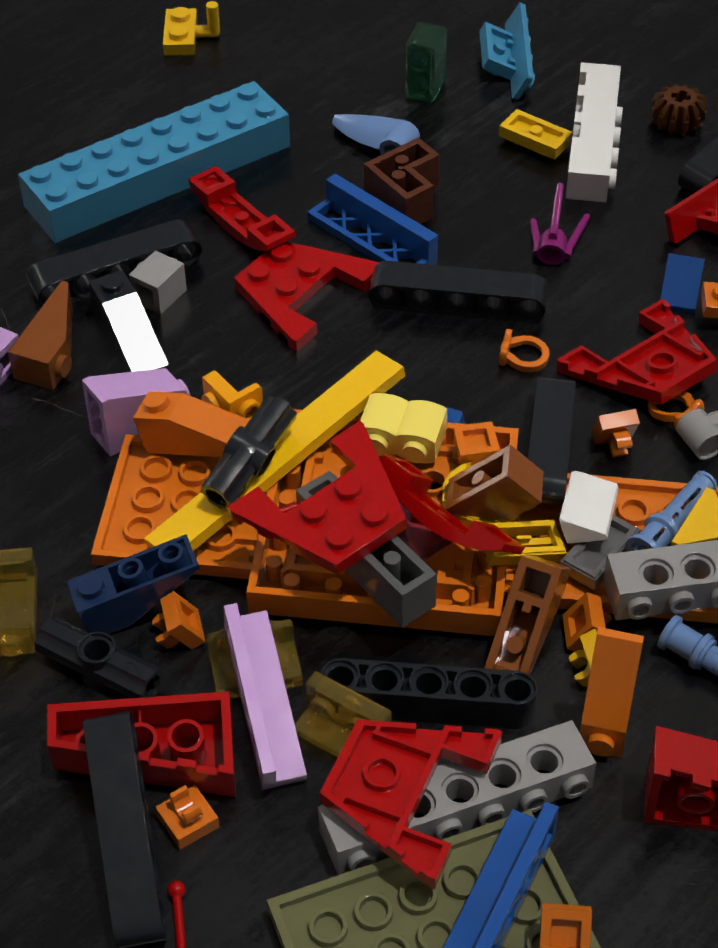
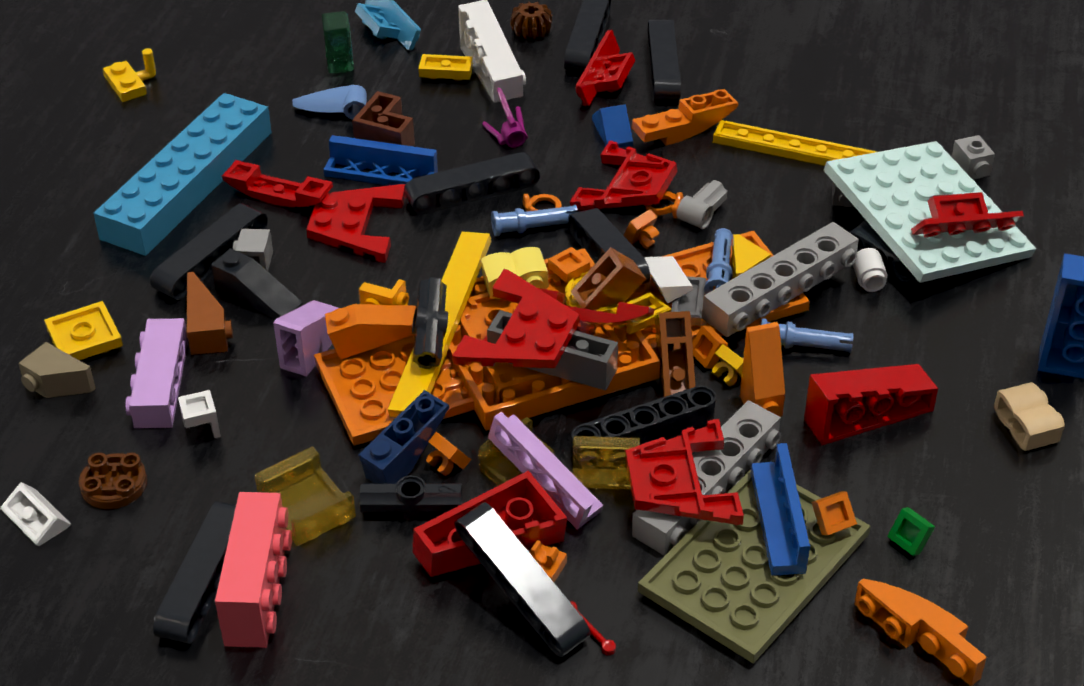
camera: 30 degrees left, 5 degrees down
(480, 361) = (521, 220): none -> medium blue pin

